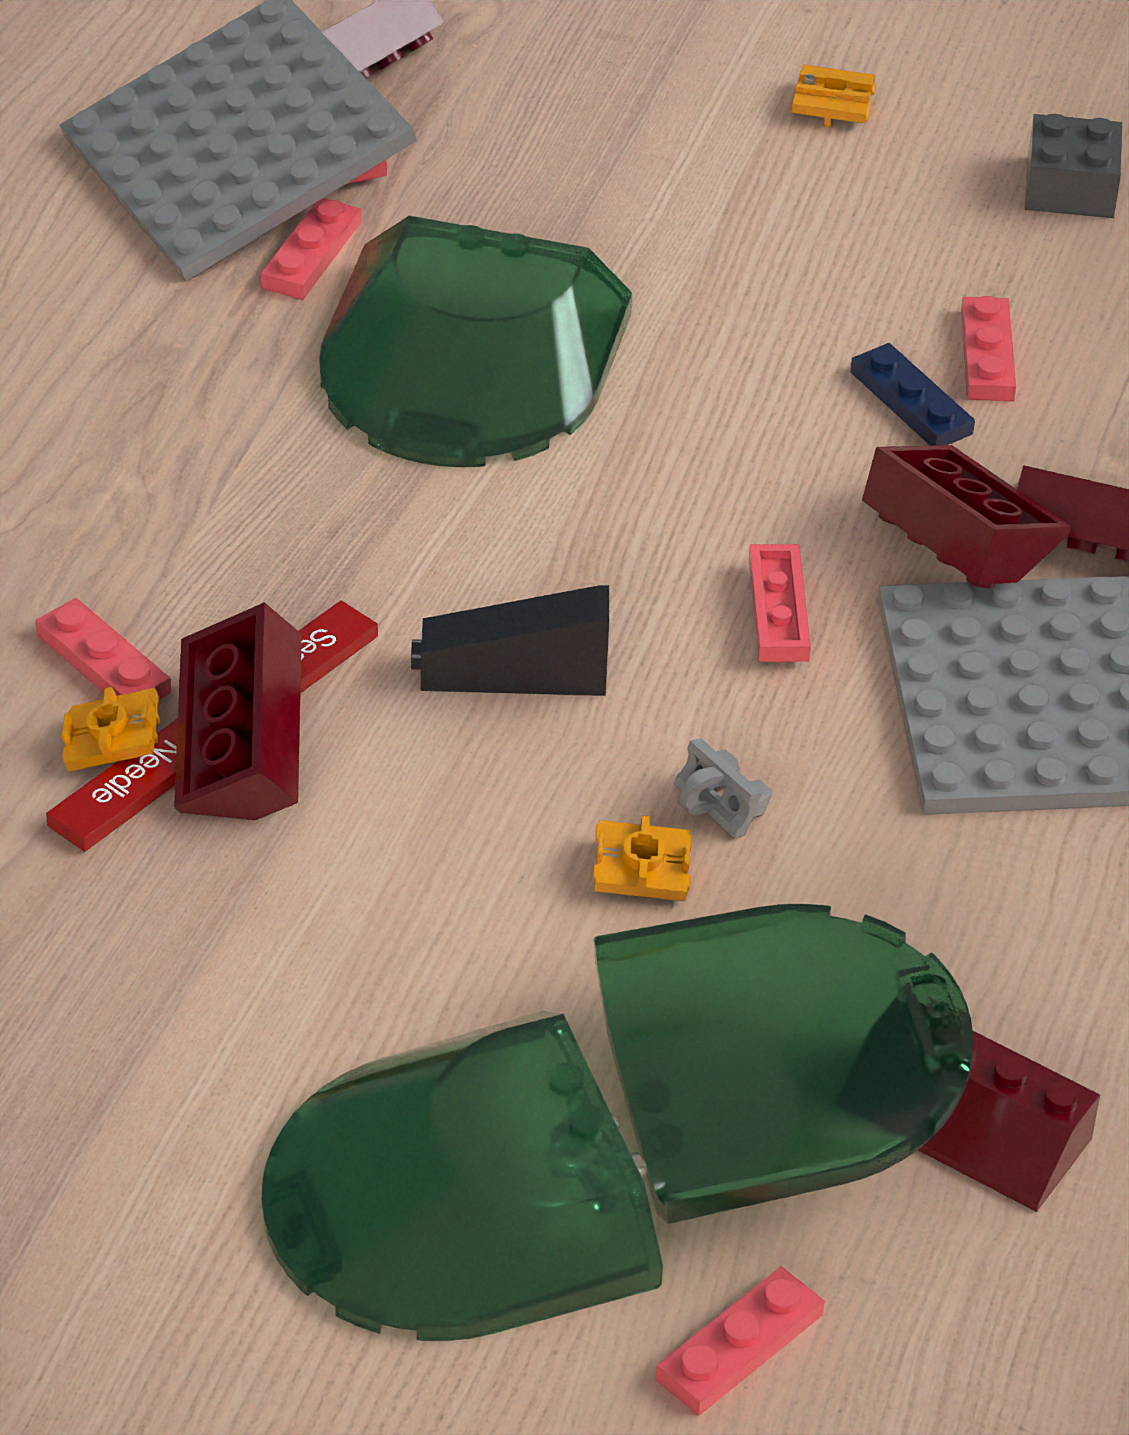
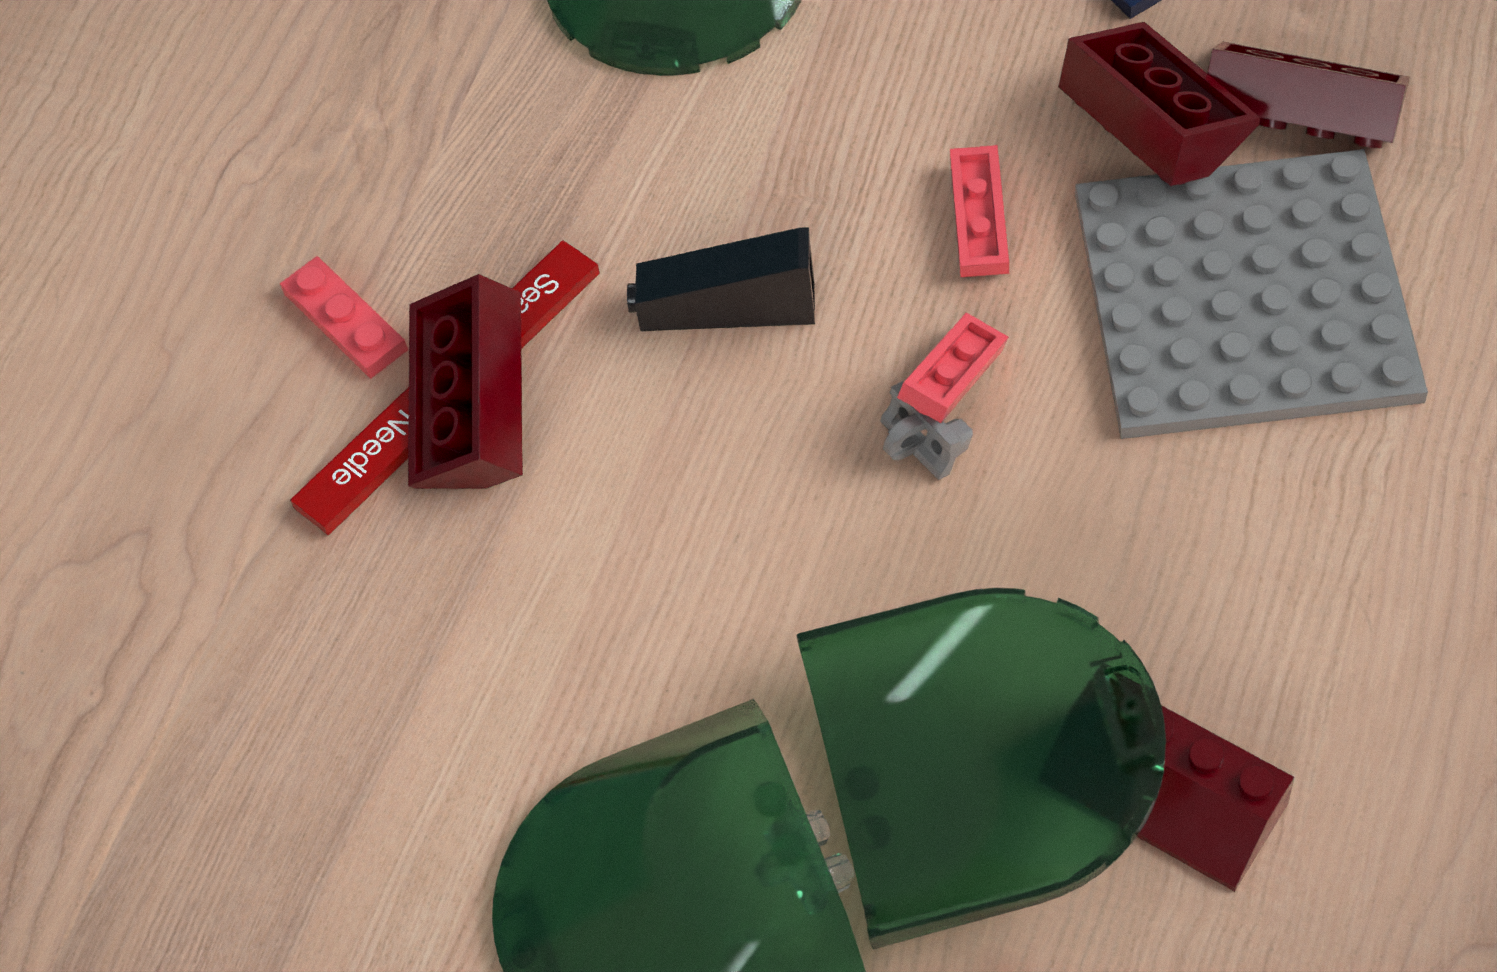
camera: 10 degrees right, 15 degrees up
(110, 729) = (348, 403): light orange piece -> none
(642, 860) = (866, 535): light orange piece -> none
(752, 730) = (952, 367): none -> coral plate

